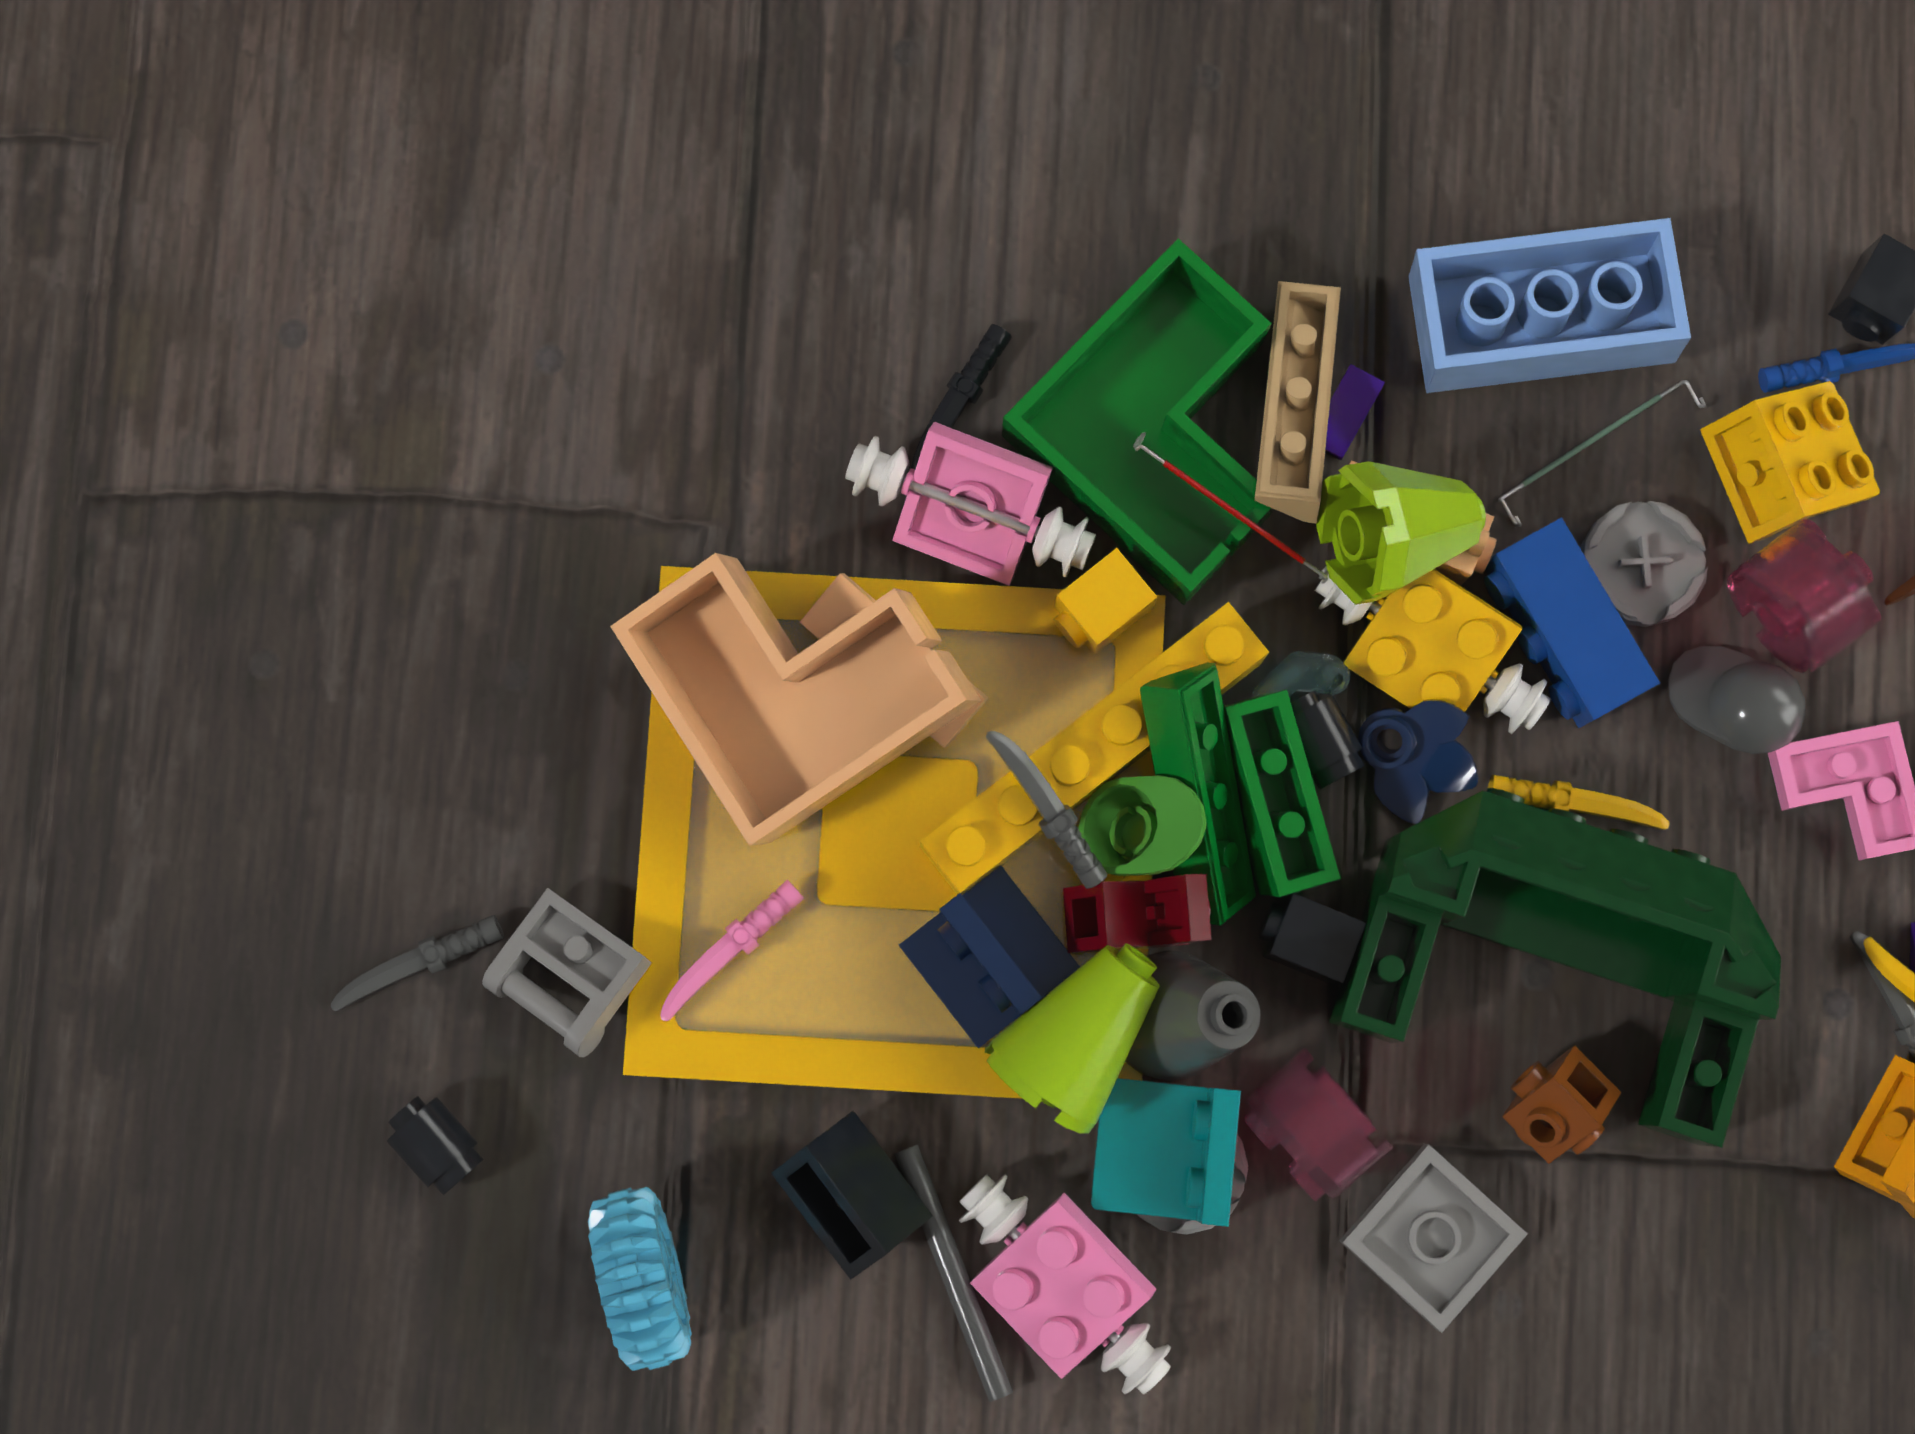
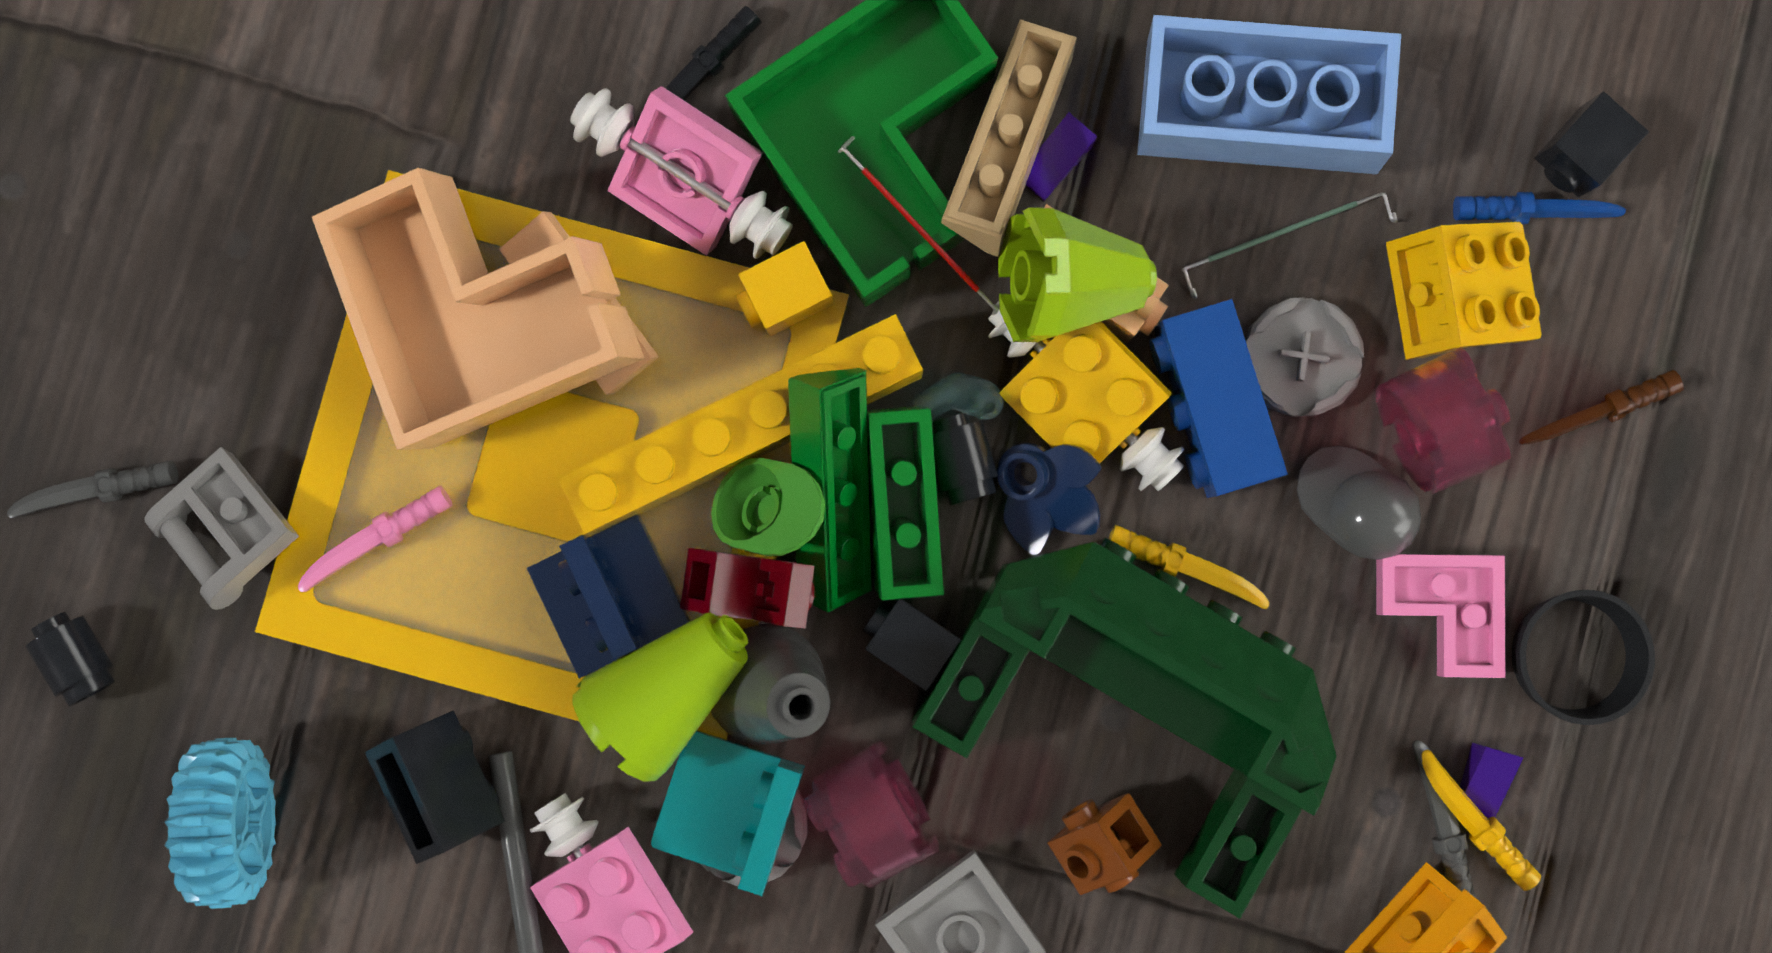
camera: 20 degrees right, 5 degrees up
(1057, 819) = (687, 485): dark grey piece -> none

